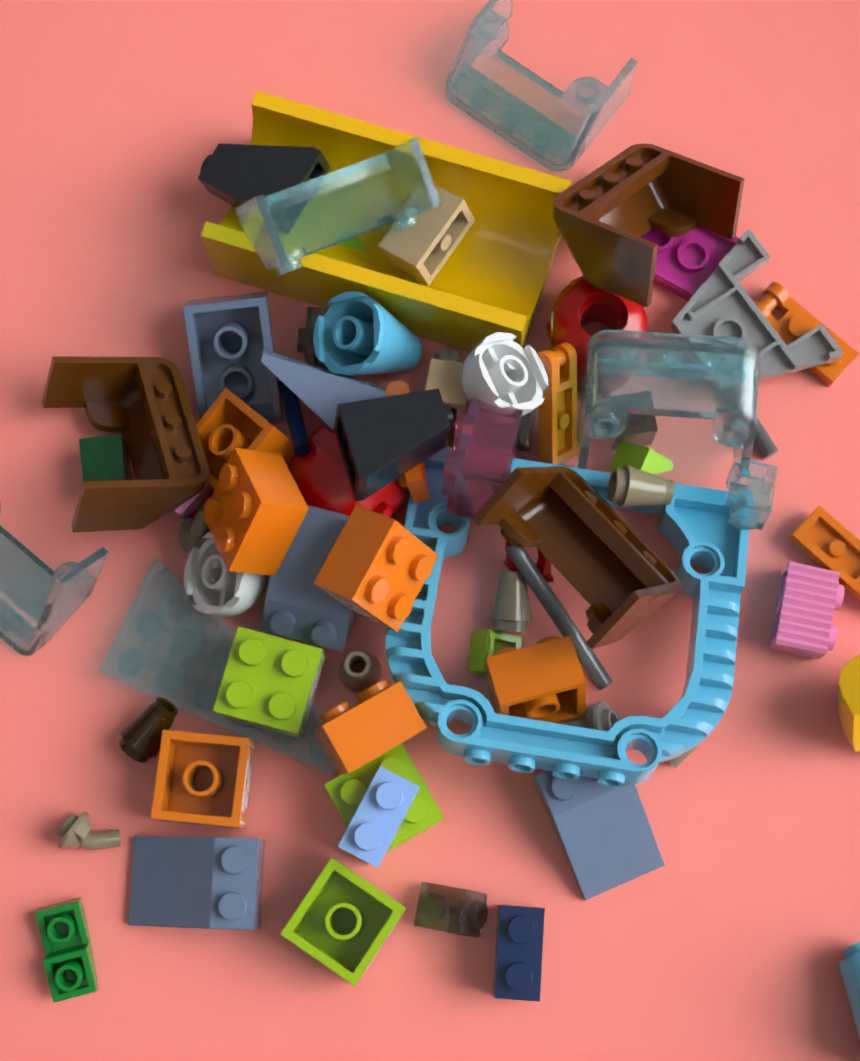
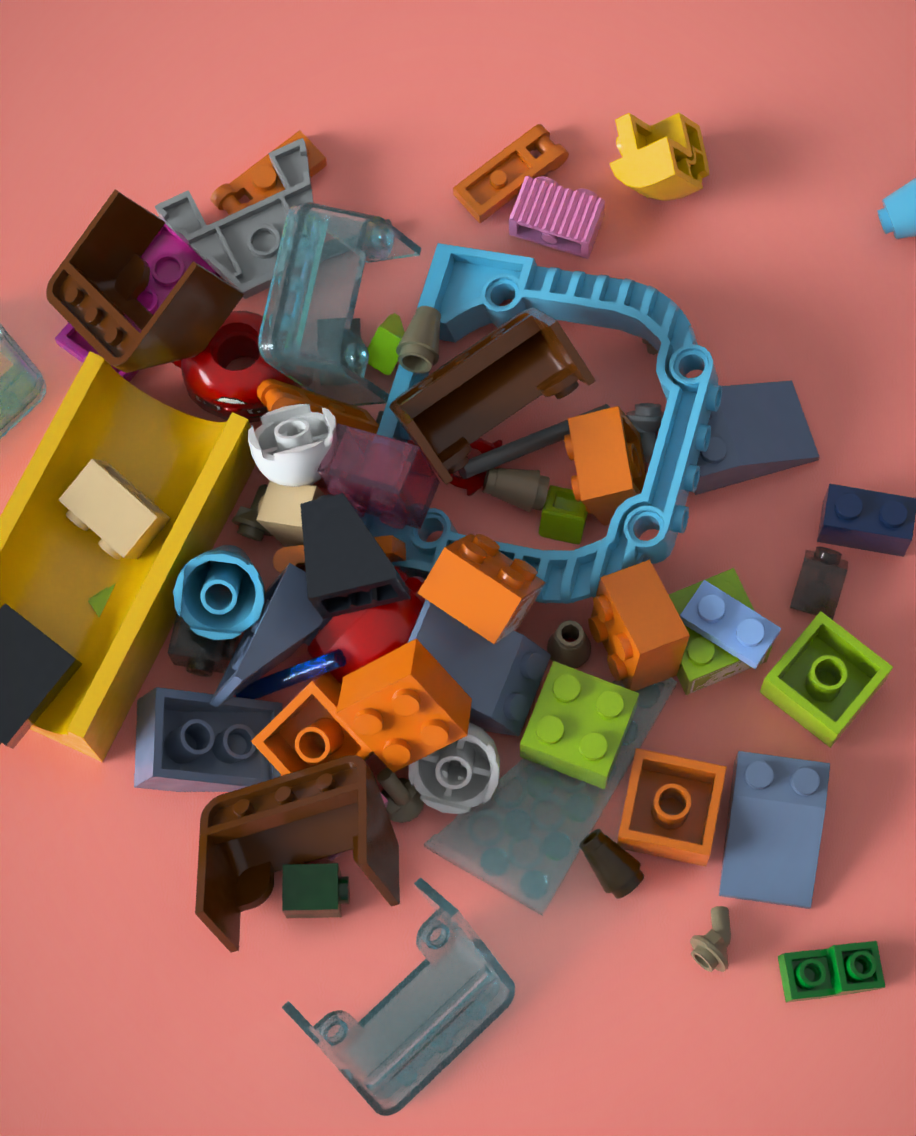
camera: 80 degrees left, 5 degrees down
(339, 206) = (75, 581): clear light blue windscreen -> none
(750, 493) = (441, 238): clear light blue brick -> none

